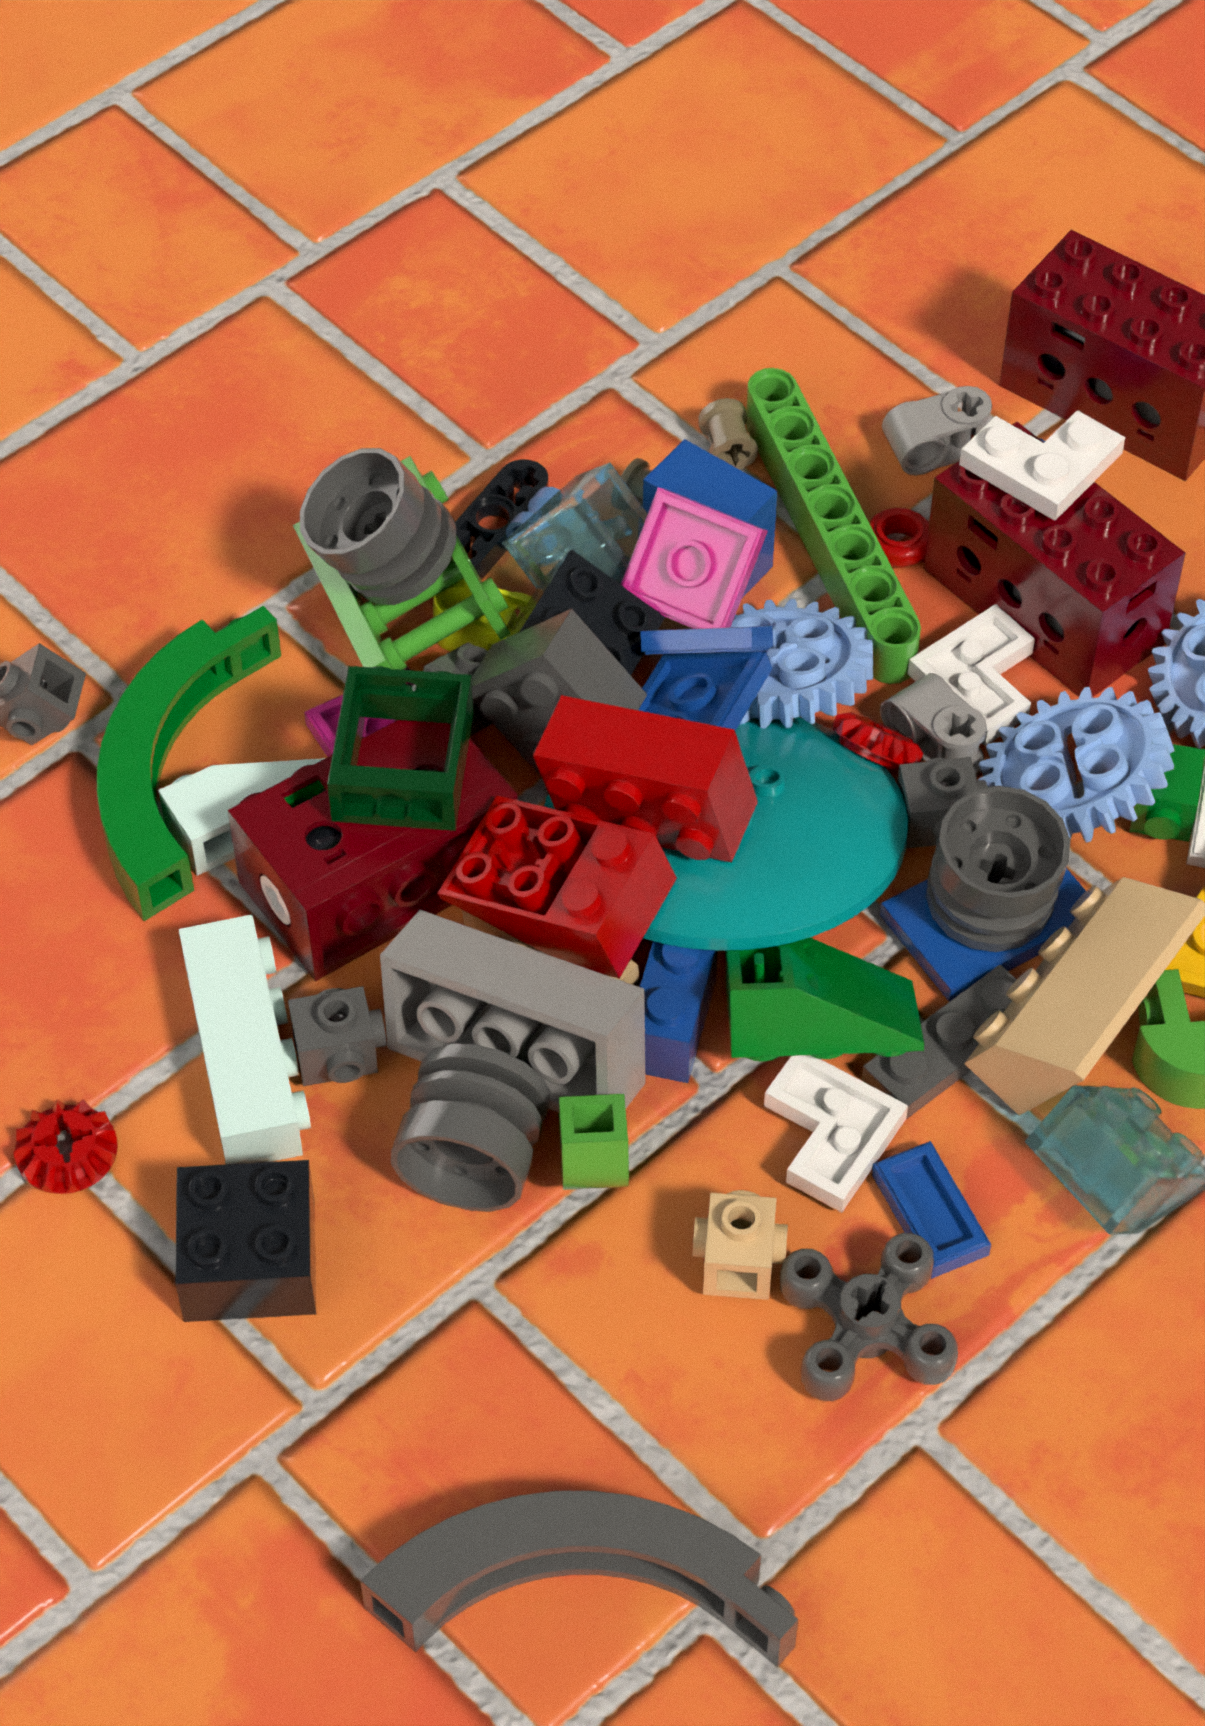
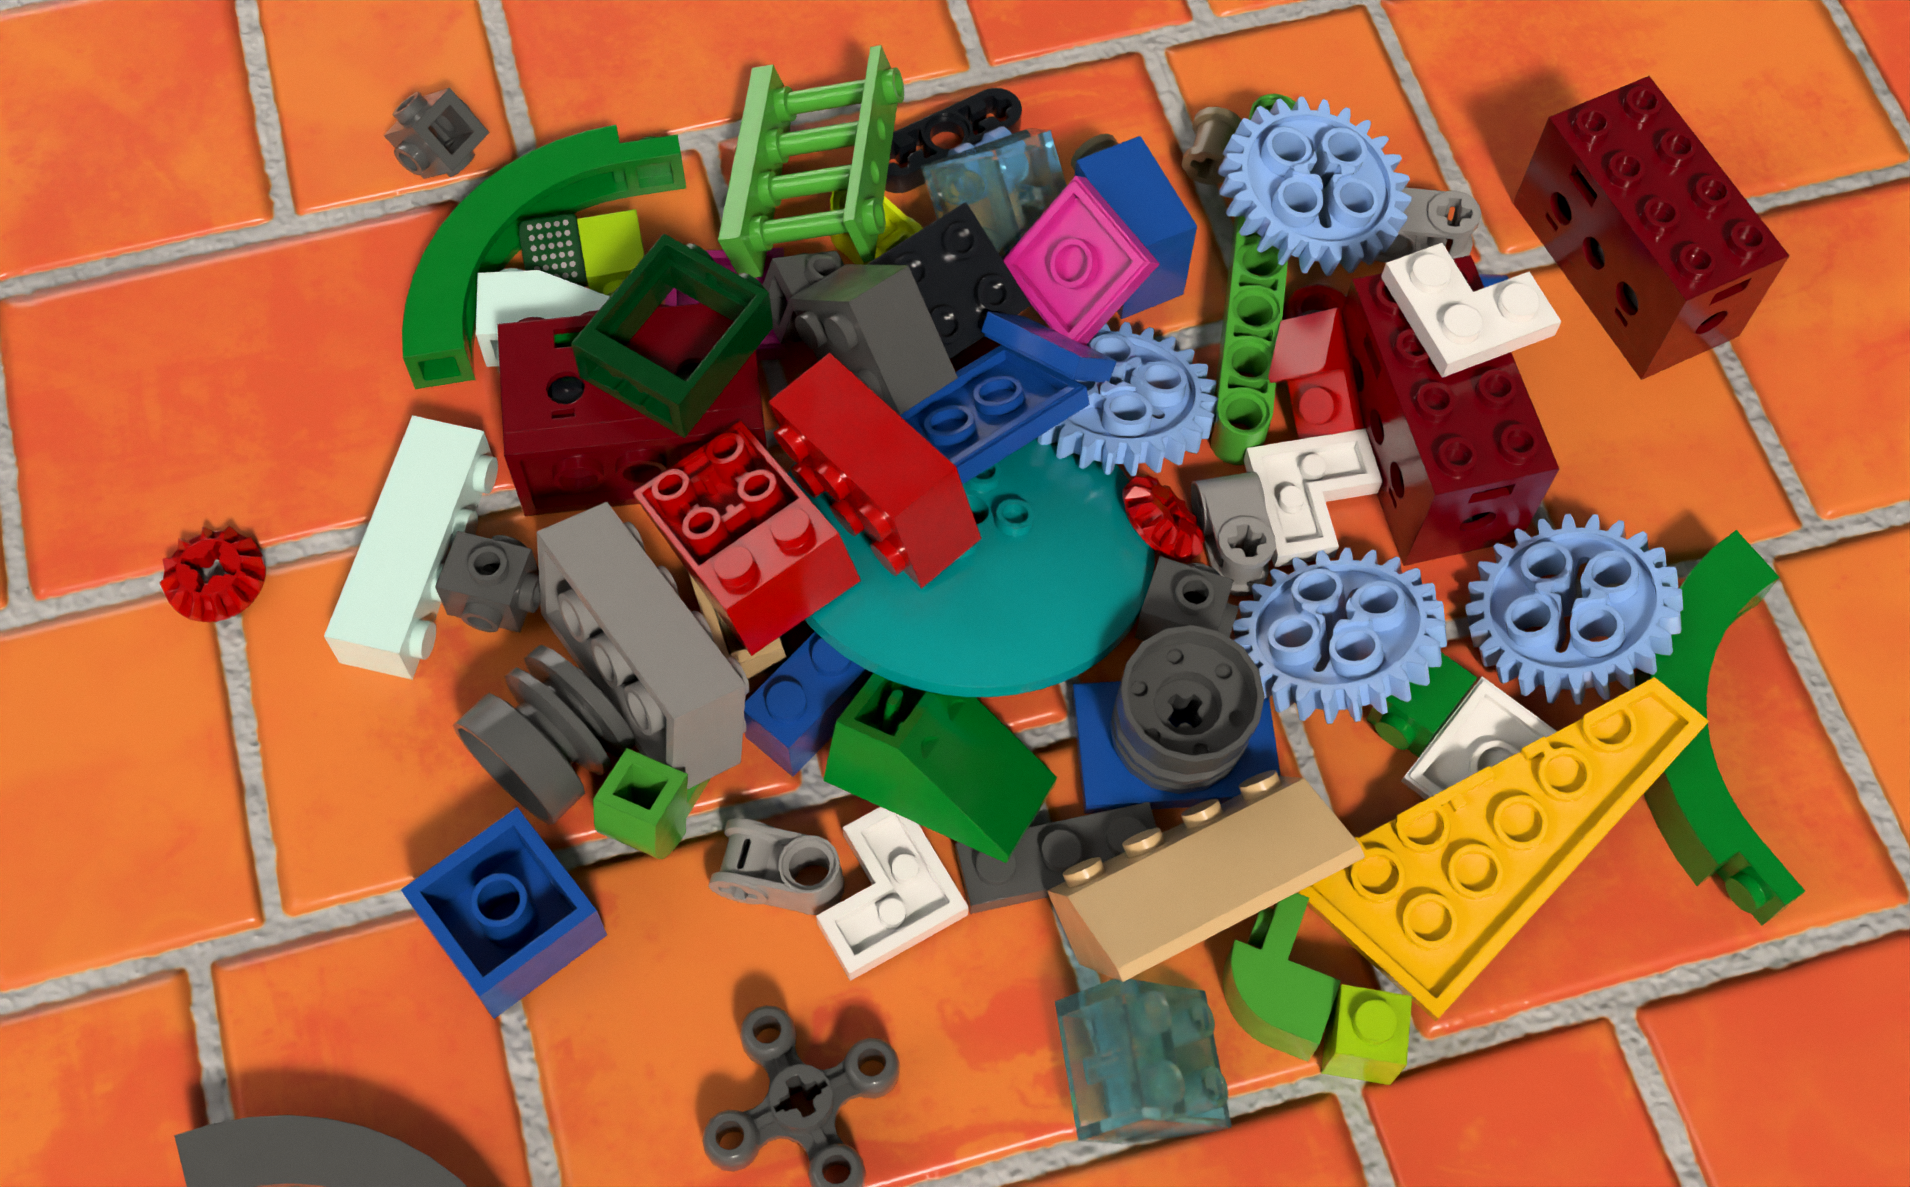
camera: 25 degrees right, 10 degrees up
(198, 745) = (553, 247): none -> dark green slope
(245, 1241) = (295, 743): black brick -> none
(264, 728) = (610, 248): none -> lime brick
(378, 526) = (793, 103): dark grey wheel -> none
(526, 1283) = (505, 912): none -> blue brick
(726, 1149) = (764, 863): none -> light grey piece
(739, 1244) = (723, 970): tan brick -> none
(845, 426) = (1314, 186): none -> light blue gear
(931, 1206) = (935, 1020): blue tile -> none
(934, 574) = (1319, 372): none -> red slope

